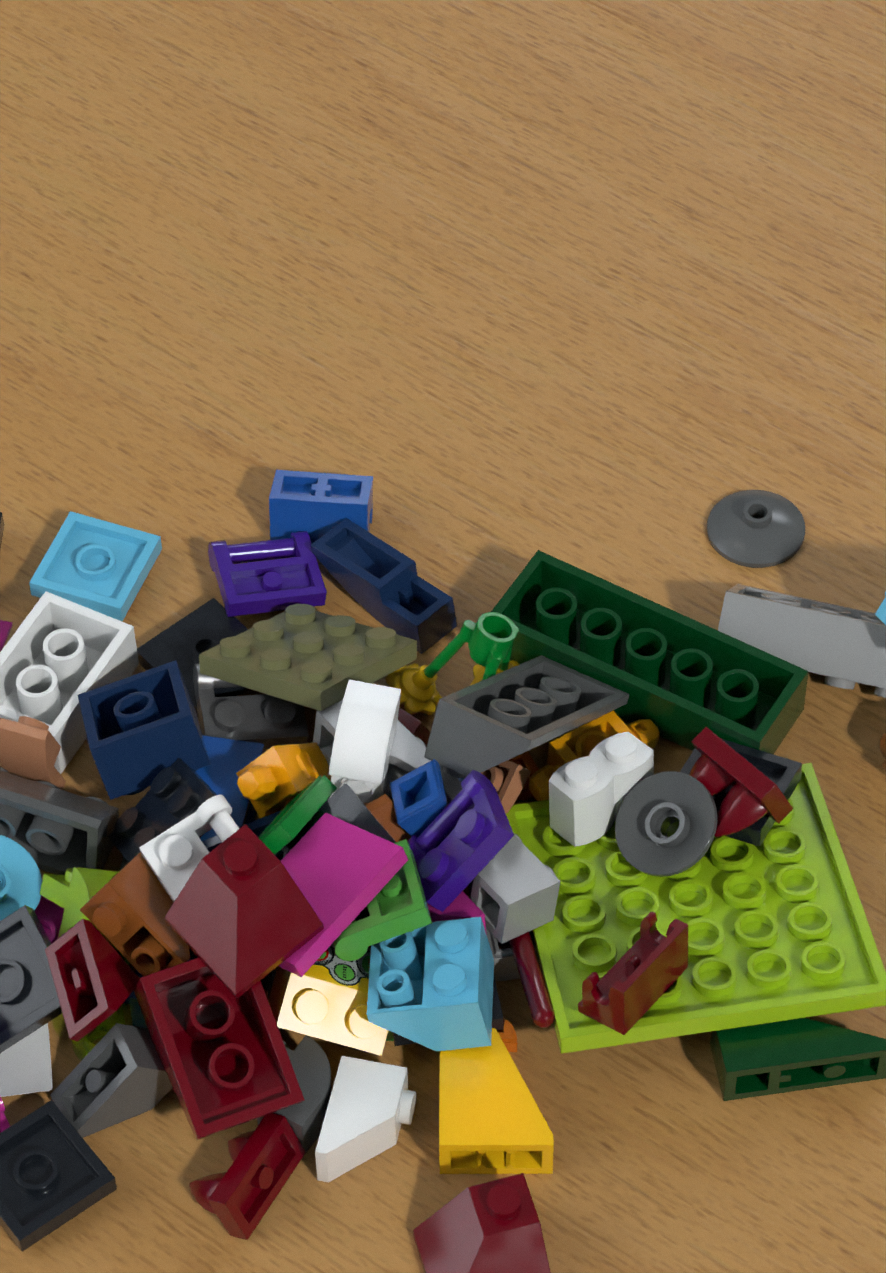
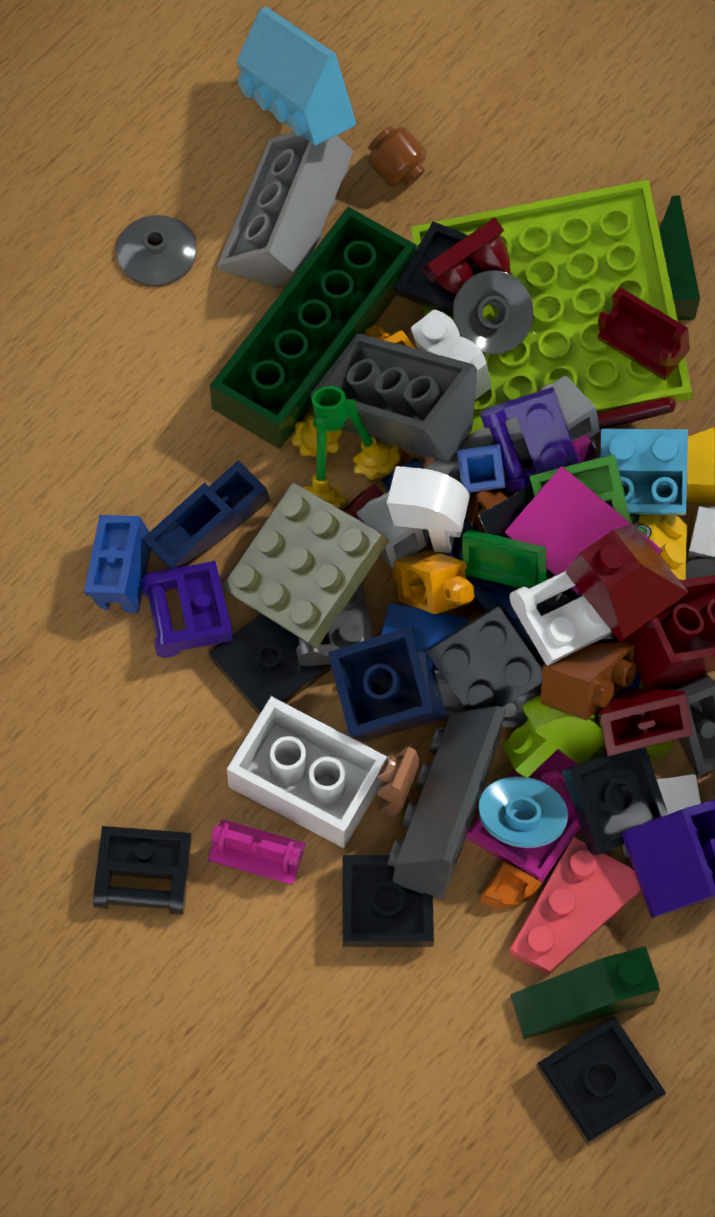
camera: 90 degrees left, 15 degrees up
(96, 564) = (165, 748): medium azure plate -> none

